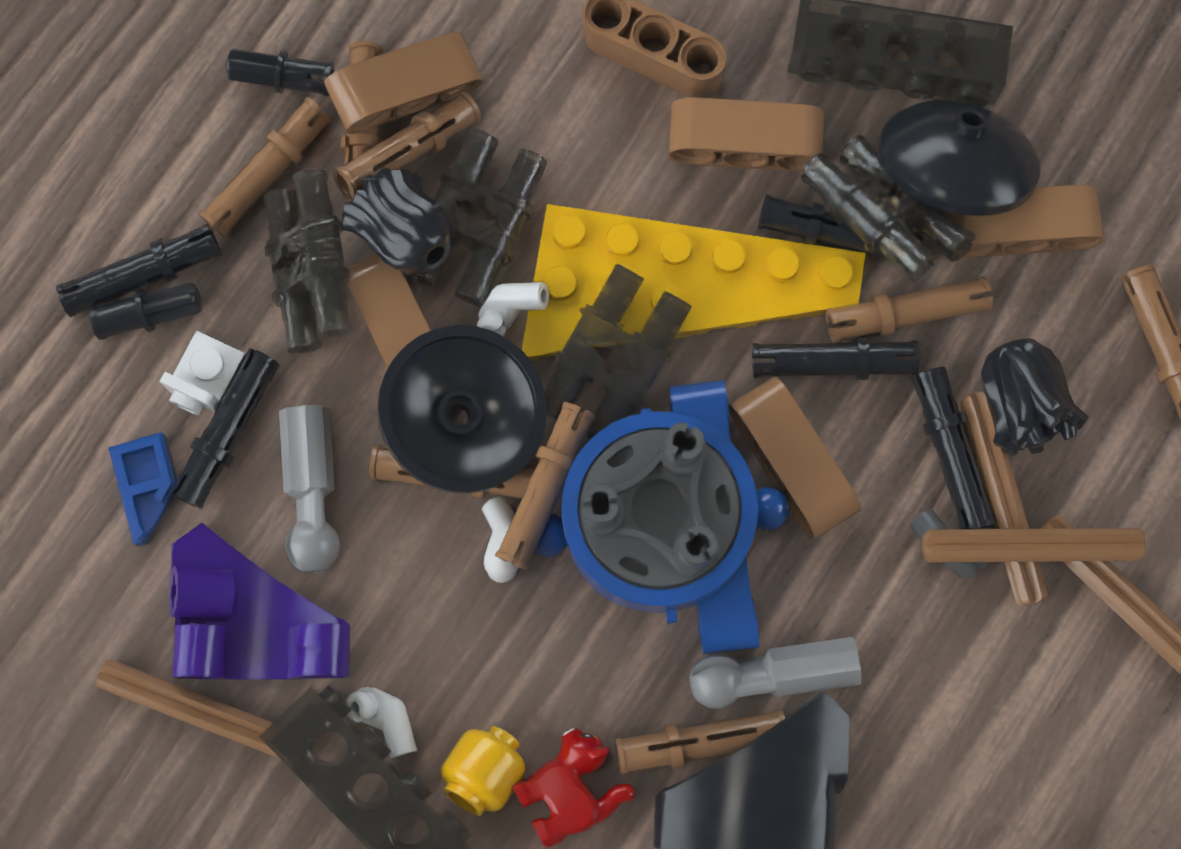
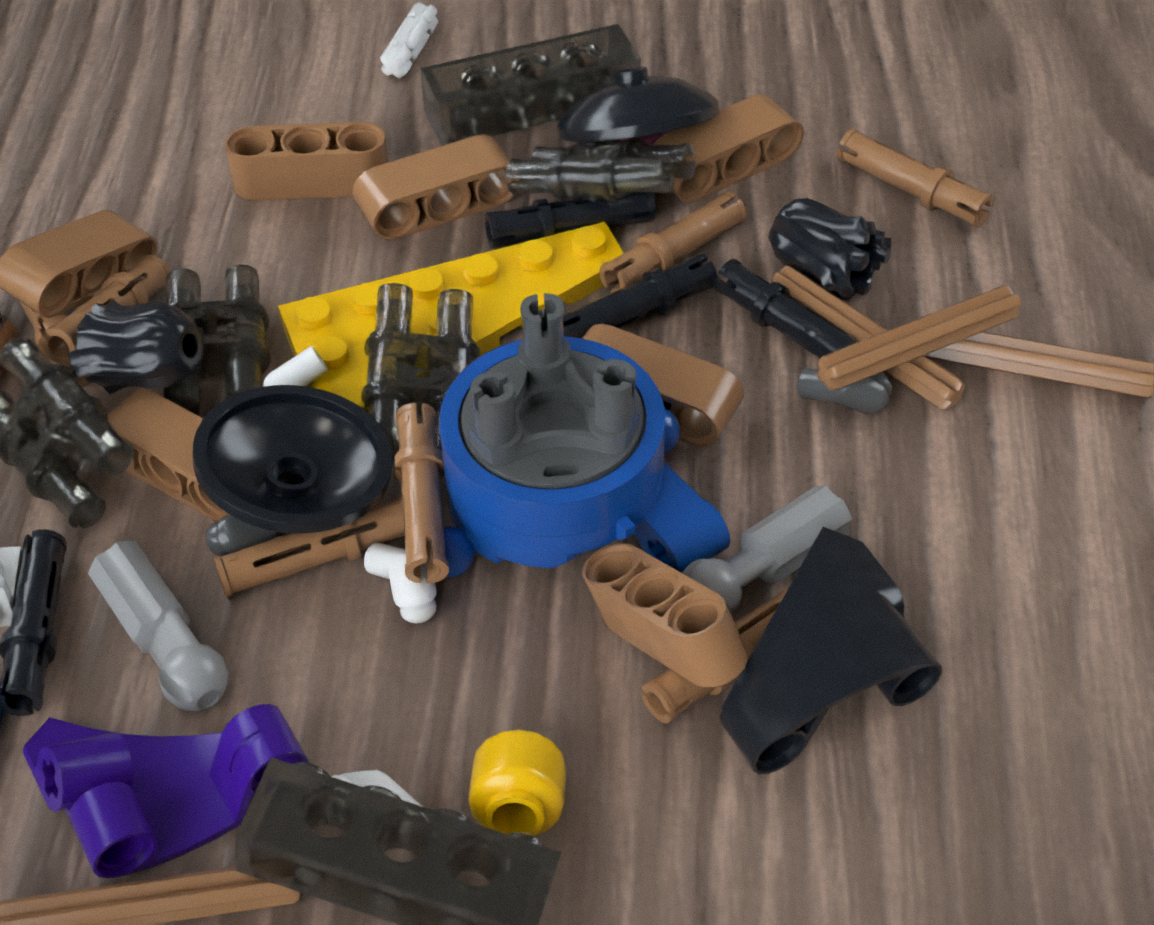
camera: 30 degrees left, 30 degrees down
(568, 798) = (626, 767): red animal -> none
(664, 725) = (665, 614): none -> medium nougat beam

